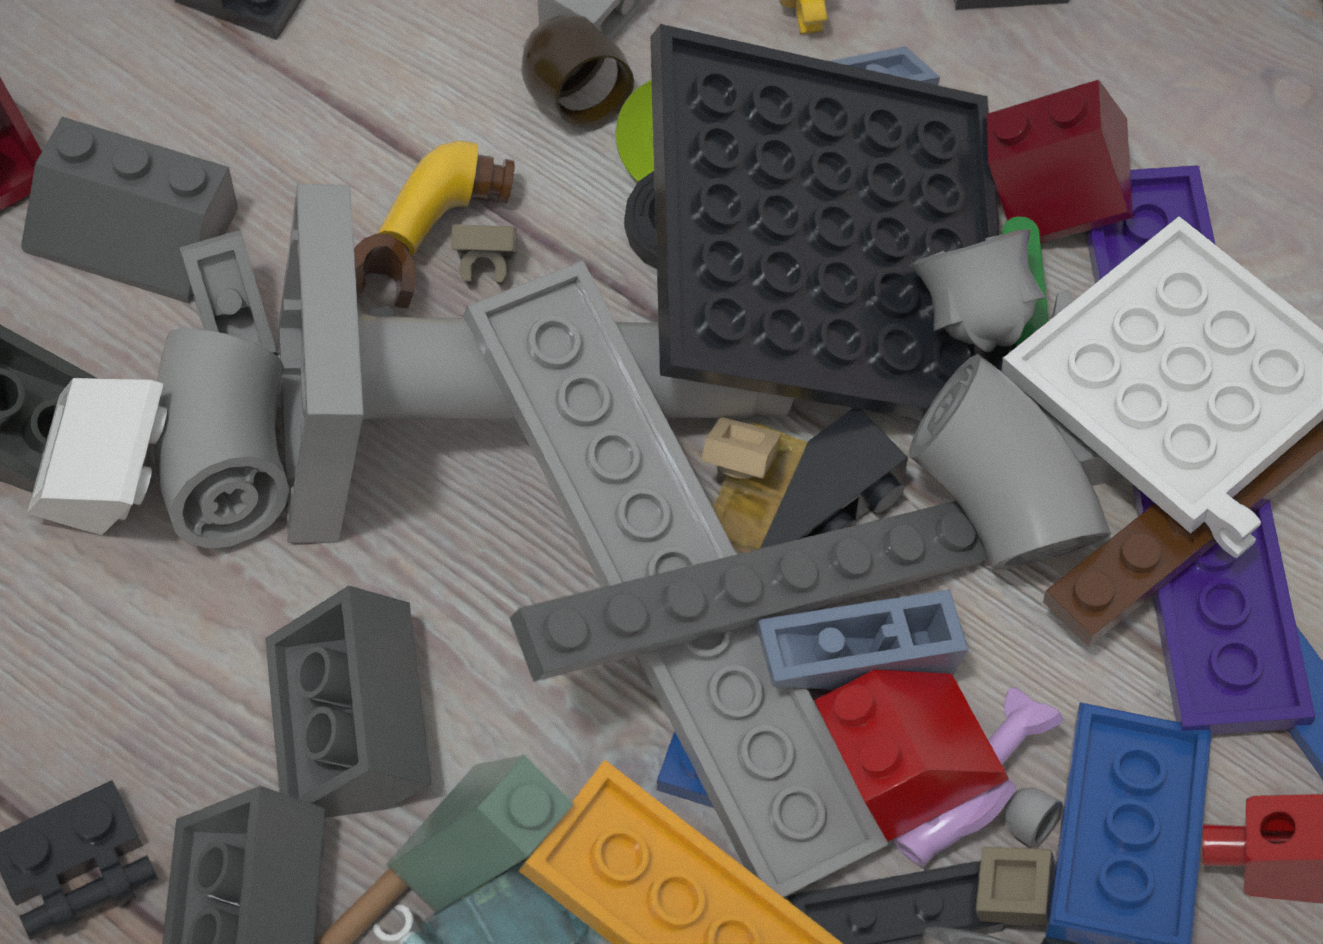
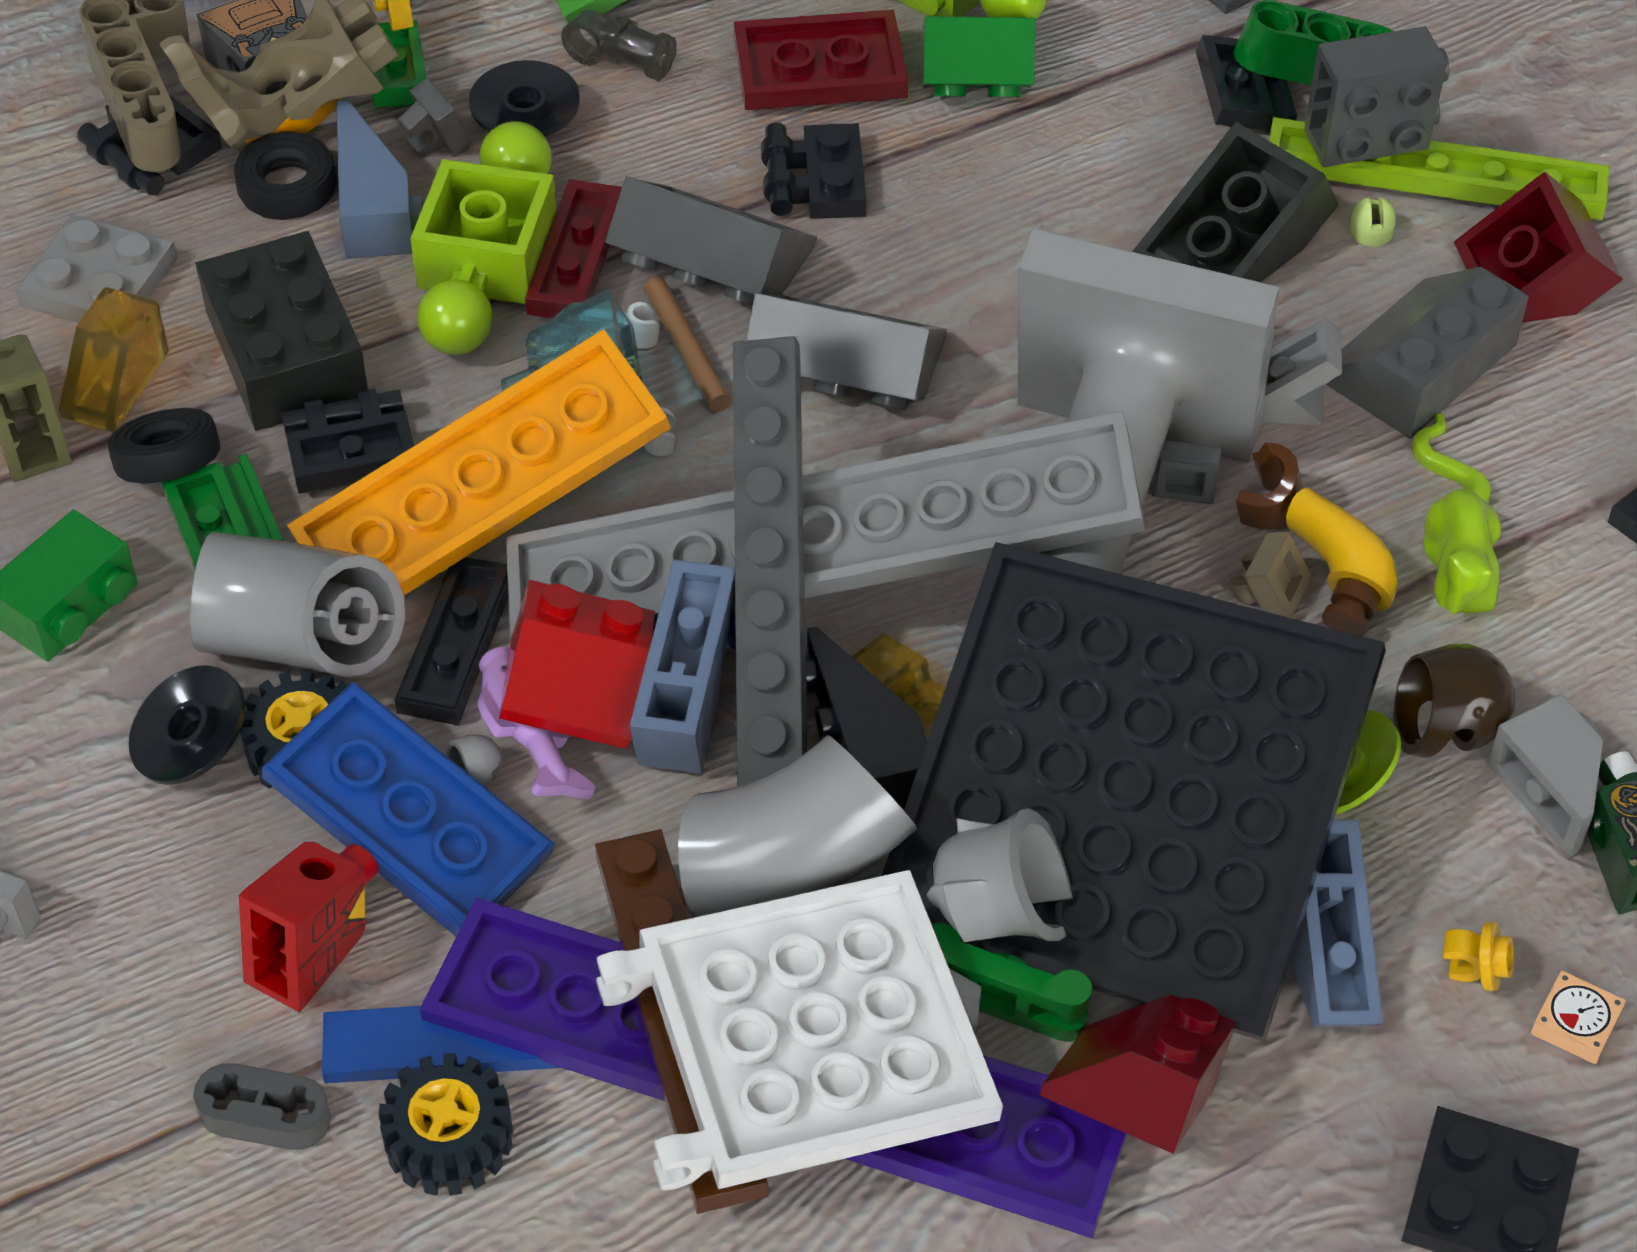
camera: 115 degrees right, 10 degrees down
(98, 452) = (1154, 225): white slope -> none
(358, 127) = (1460, 531): none -> lime animal
(480, 830) = (675, 362): sand green slope -> none
(741, 448) = (931, 662): tan plate -> none
(1015, 885) = (417, 698): dark tan tile -> none

